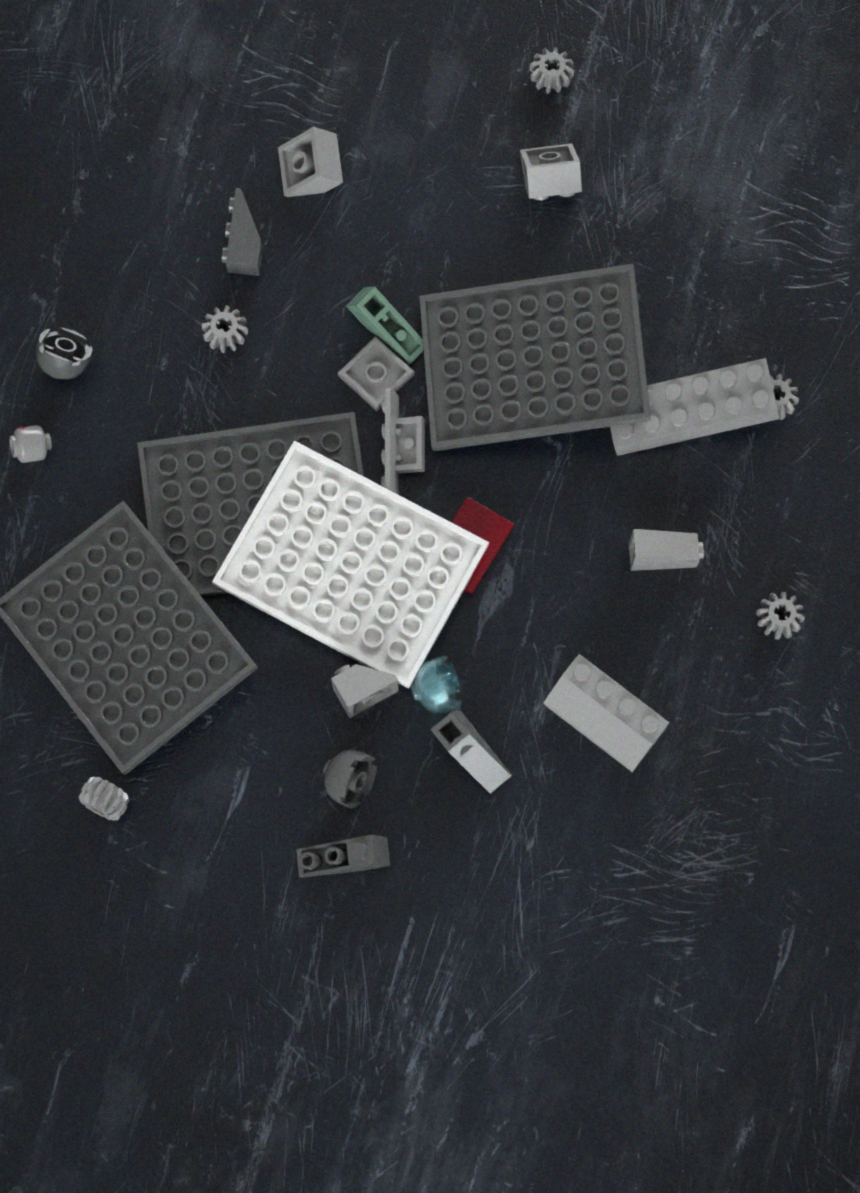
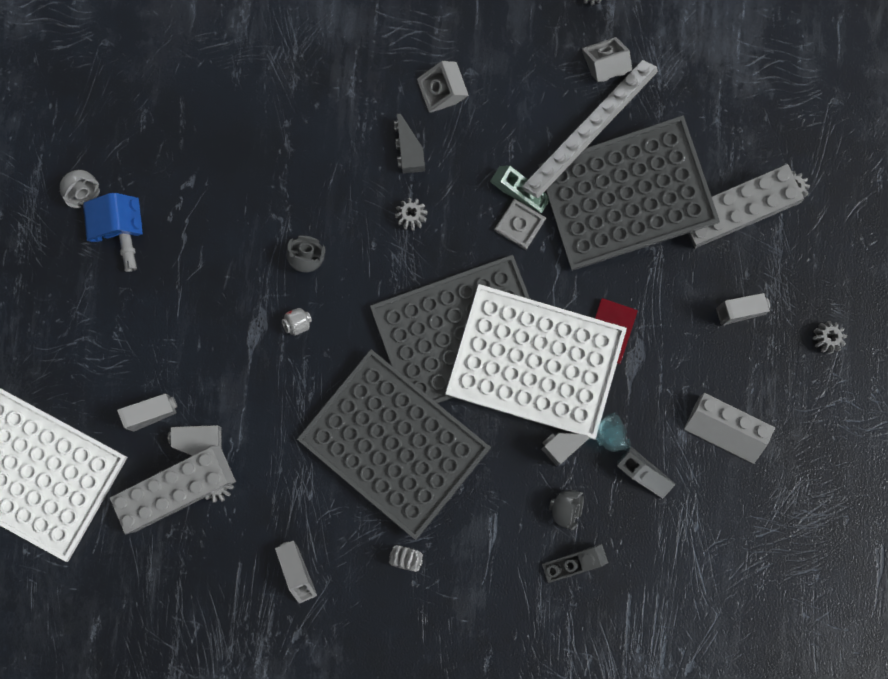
camera: 15 degrees left, 5 degrees up
(403, 442) = (551, 270): light grey bracket -> none
(502, 260) = (589, 129): none -> light grey plate

